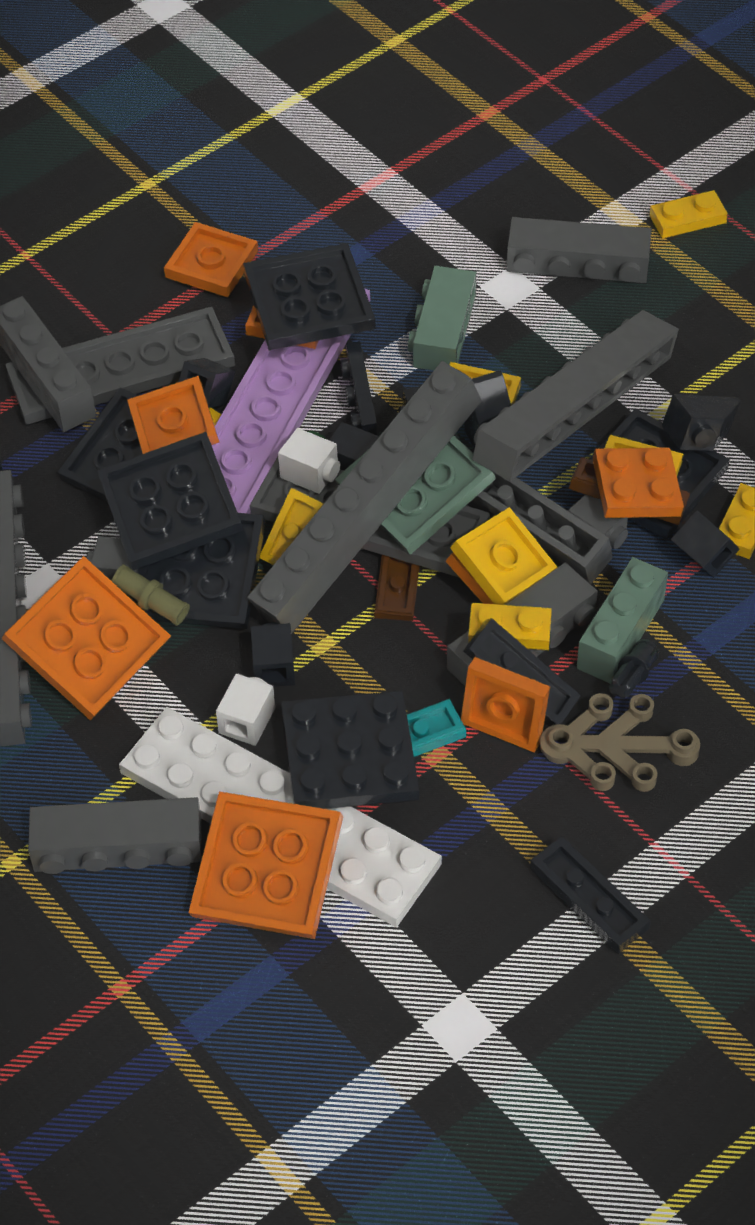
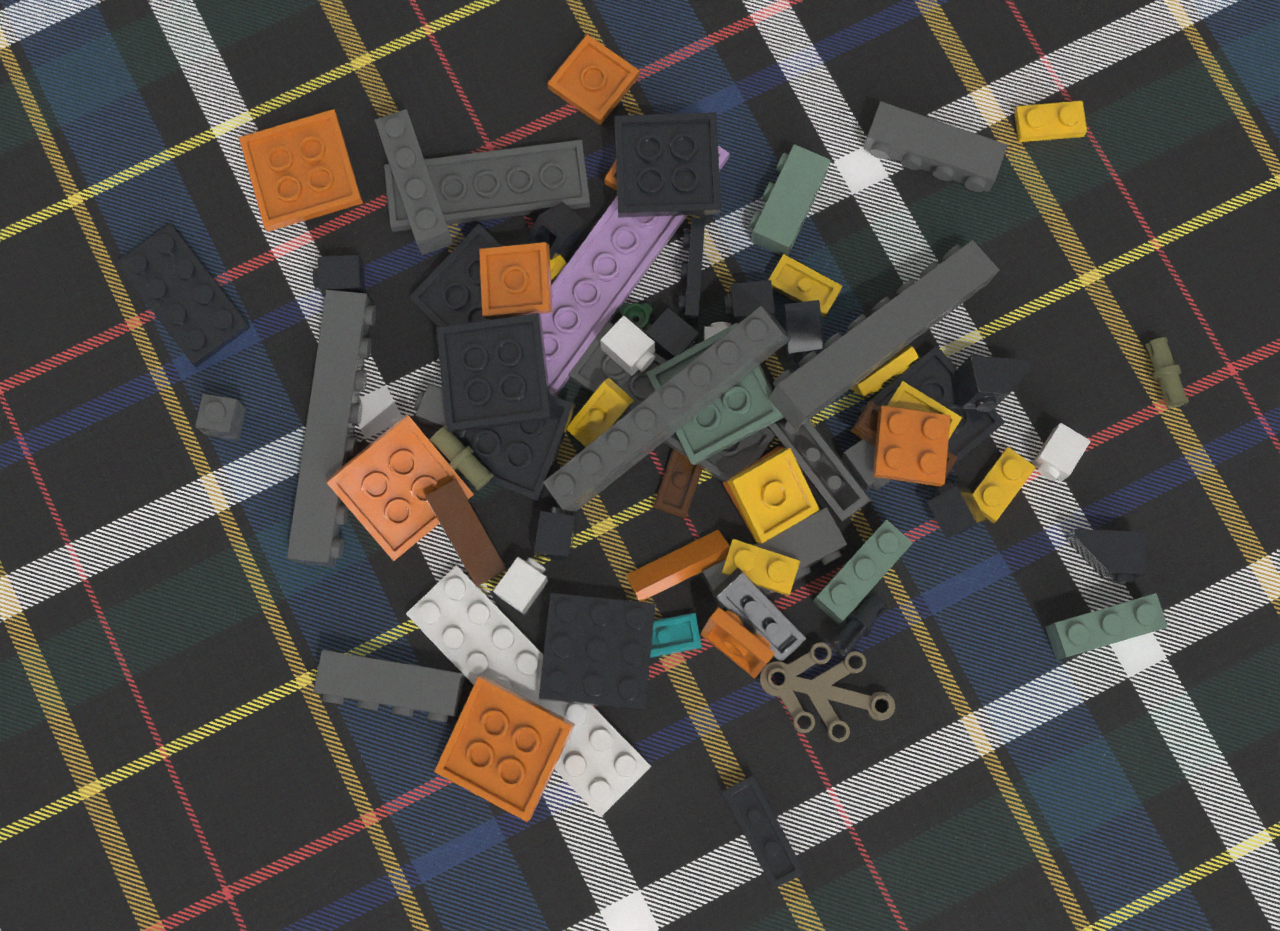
camera: 15 degrees right, 25 degrees up
(170, 669) = (465, 532): none -> reddish brown tile
(415, 657) = (678, 565): none -> orange tile
(594, 432) = (895, 365): none -> yellow plate

